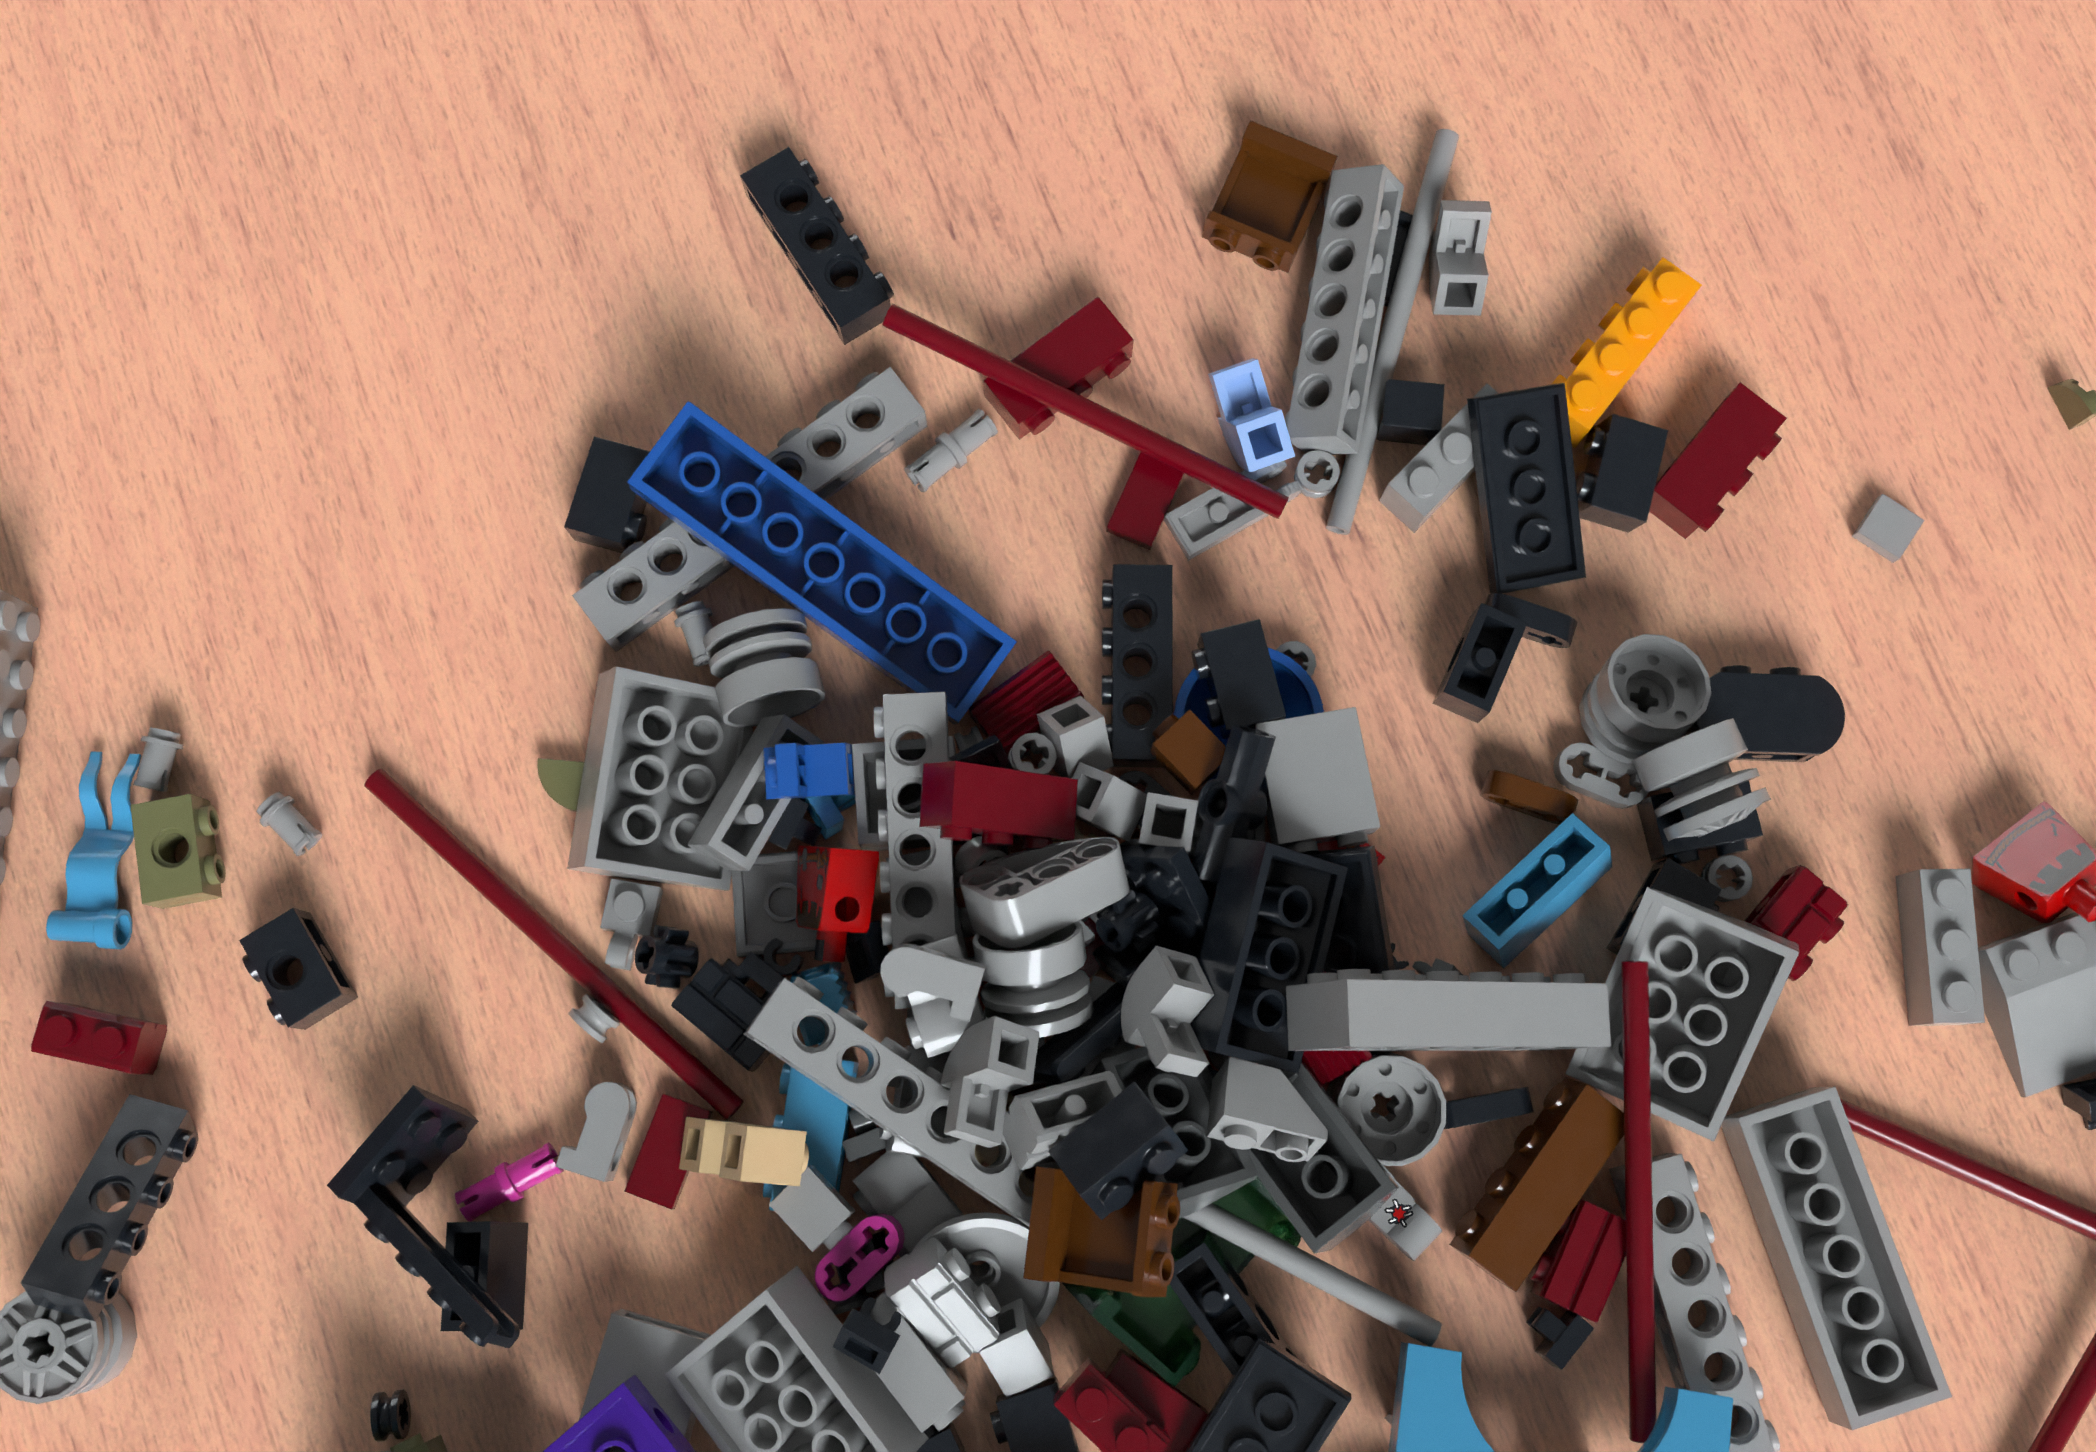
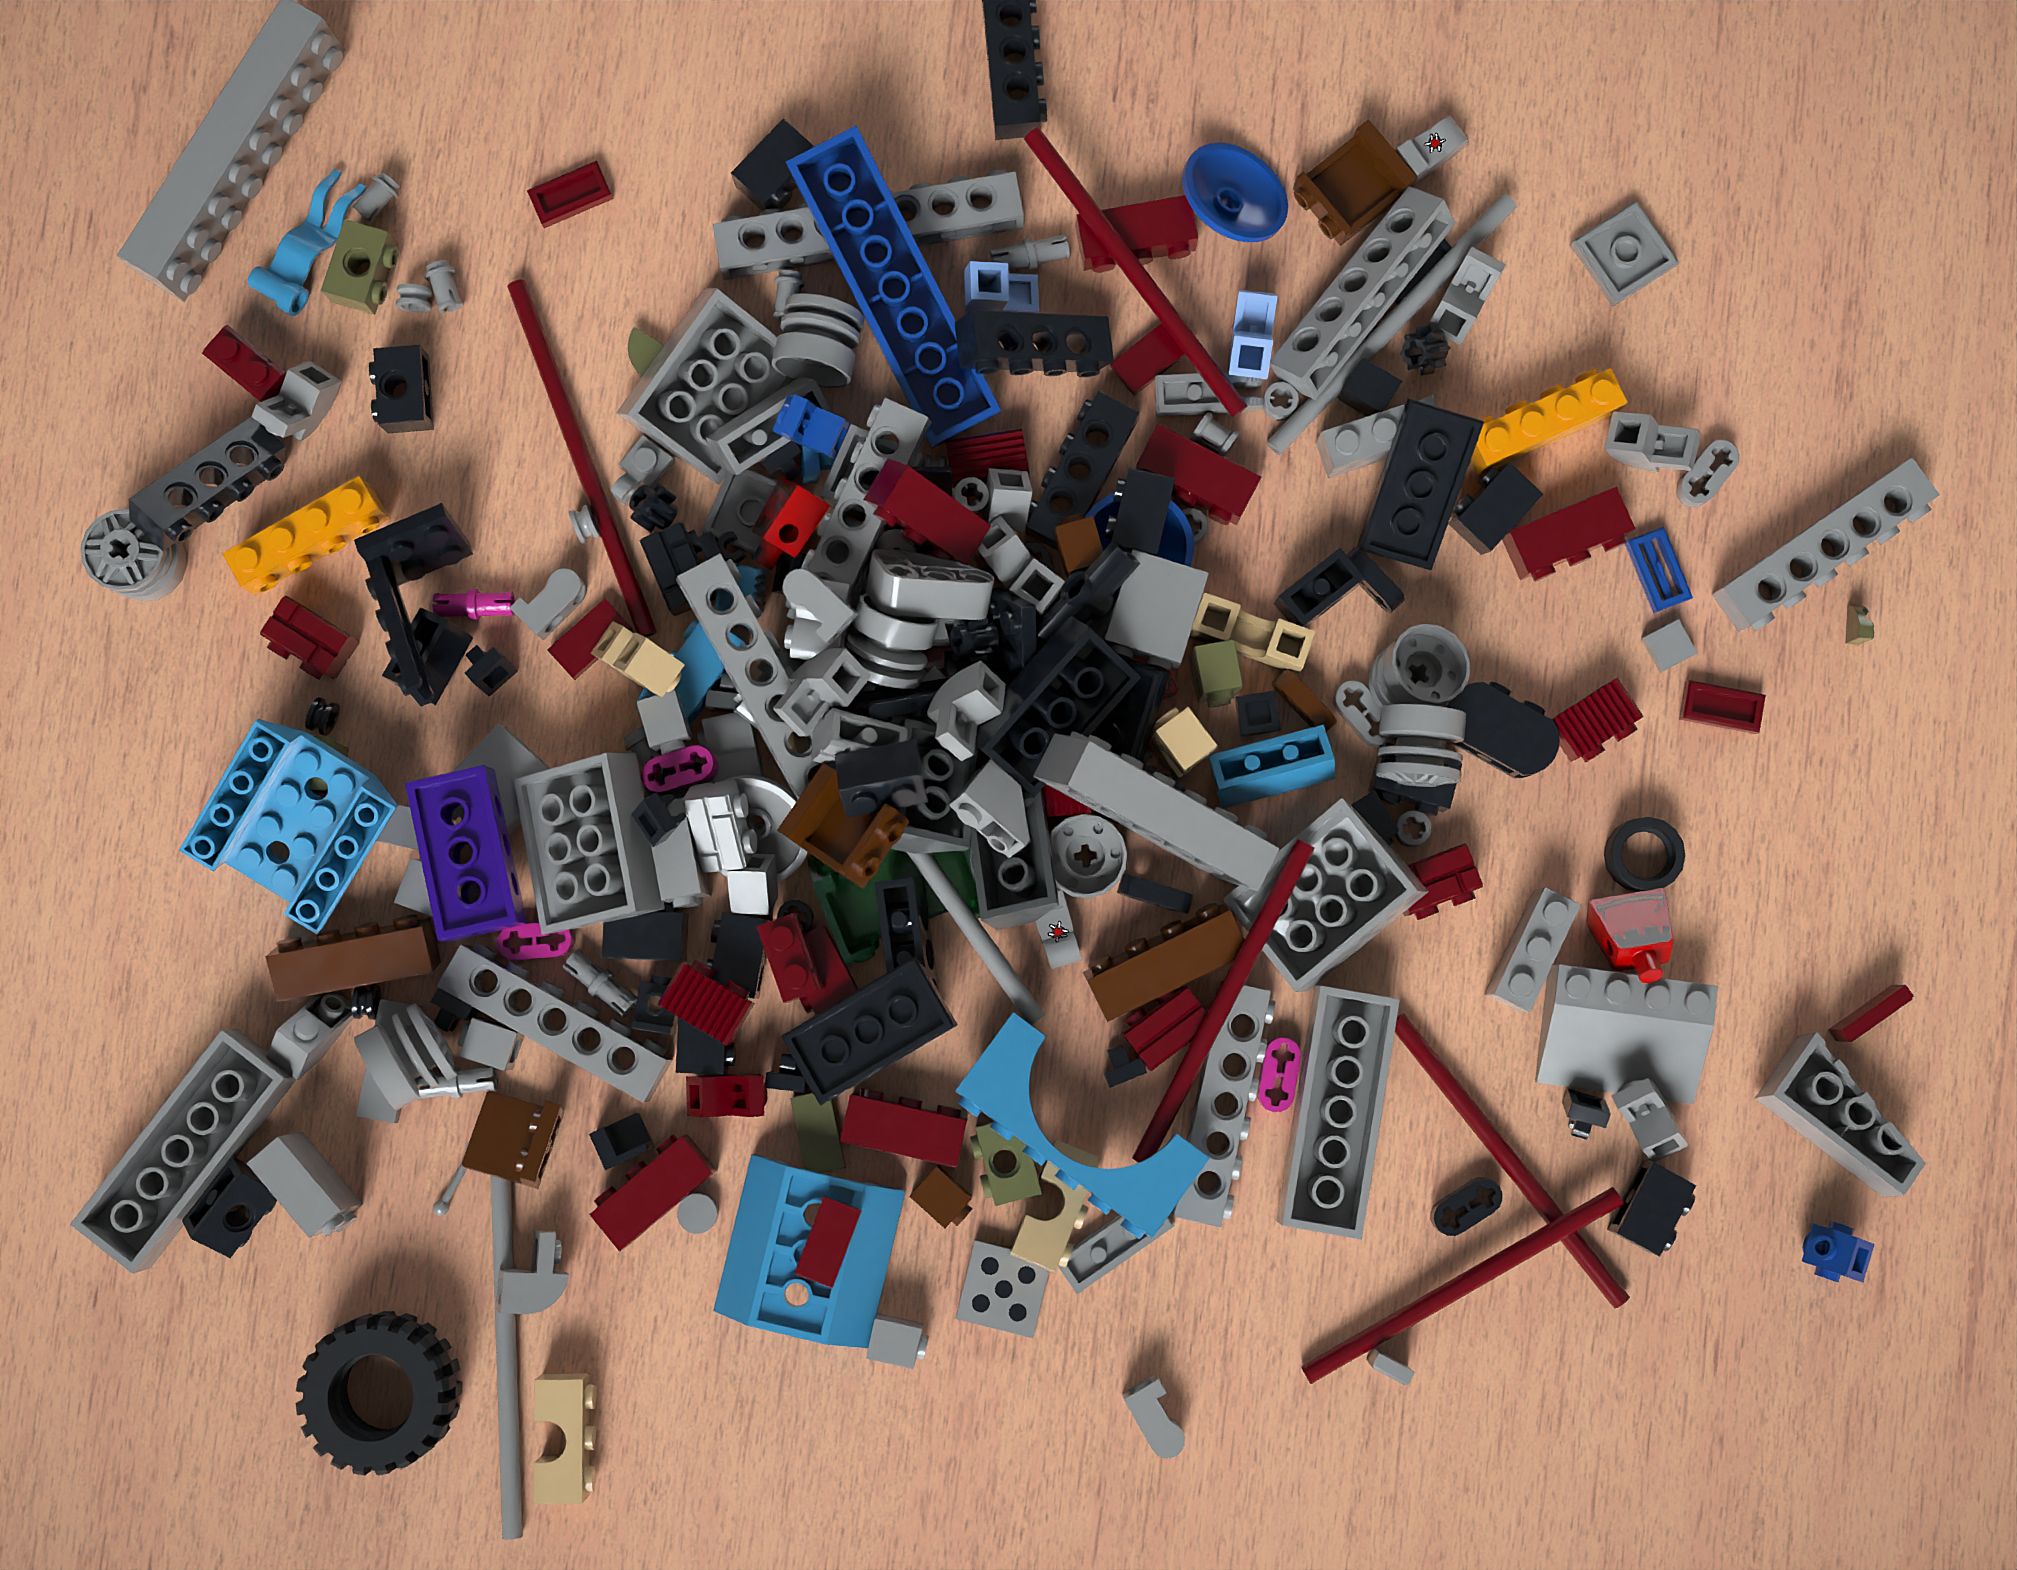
camera: 30 degrees right, 5 degrees up
(183, 1049) = (301, 404): none -> light grey brick
(259, 855) = (413, 298): none -> light grey bush
(264, 1207) = (306, 536): none -> light orange brick
(327, 1329) = (309, 638): none -> dark red brick
(386, 644) = (570, 194): none -> dark red tile
(565, 1252) = (489, 669): none -> black tile
(794, 1250) = (639, 744): none -> light grey pin
(938, 509) = (994, 289): none -> light blue brick
(1012, 547) = (1086, 336): none -> black brick
(1084, 1341) = (801, 907): none -> black bush
(1146, 271) = (1234, 192): none -> blue dish
(1267, 550) = (1214, 435): none -> light grey bush
(1284, 599) = (1199, 475): none -> dark red brick
(1334, 116) = (1433, 148): none -> light grey leg
(1419, 817) = (1216, 673): none -> olive brick
(1430, 918) = (1181, 742): none -> tan arch
(1445, 751) = (1266, 641): none -> tan arch
(1458, 332) = (1425, 350): none -> black gear
(1487, 838) = (1257, 713): none -> black tile
(1598, 131) = (1624, 253): none -> light grey tile
(1743, 321) = (1649, 446): none -> light grey brick
(1747, 1240) = (1288, 1076): none -> dark pink beam
(1824, 467) = (1645, 576): none -> blue tile
(1831, 322) = (1714, 478): none -> light grey beam
(1861, 650) = (1595, 720): none -> dark red brick
(1982, 566) = (1722, 707): none -> dark red tile
(2032, 763) = (1671, 840): none -> black tyre
(2037, 1288) = (1470, 1215): none -> black beam
(2052, 237) = (1903, 485): none -> light grey brick

